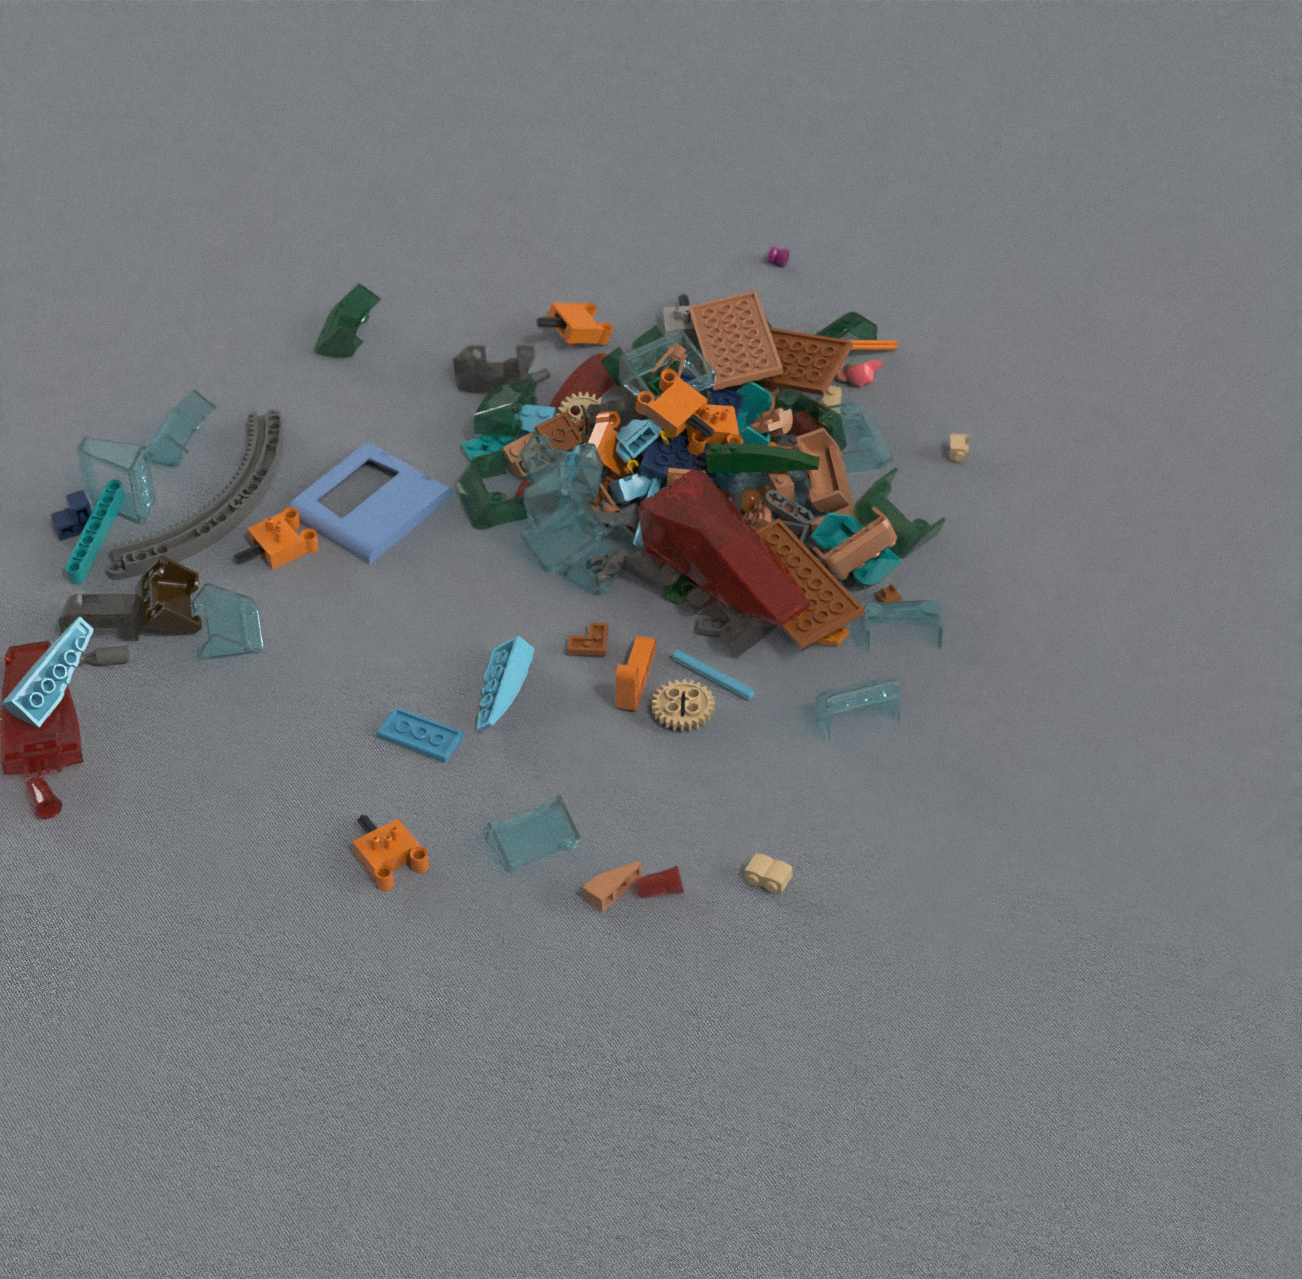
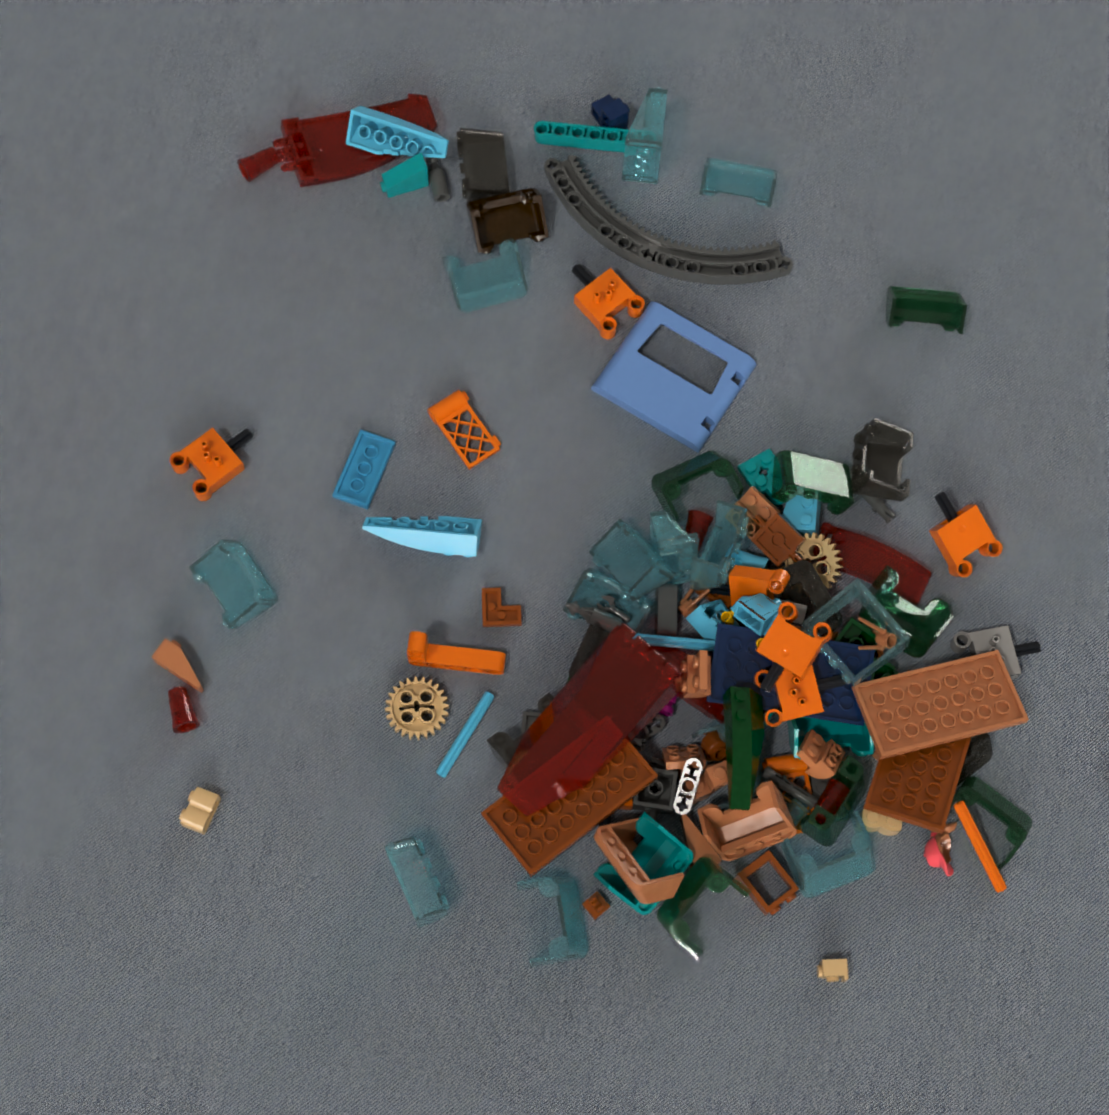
camera: 80 degrees right, 25 degrees up
(97, 673) = (405, 177): none -> teal slope
(373, 663) = (452, 407): none -> orange piece
(859, 476) = (755, 866): none -> dark orange window

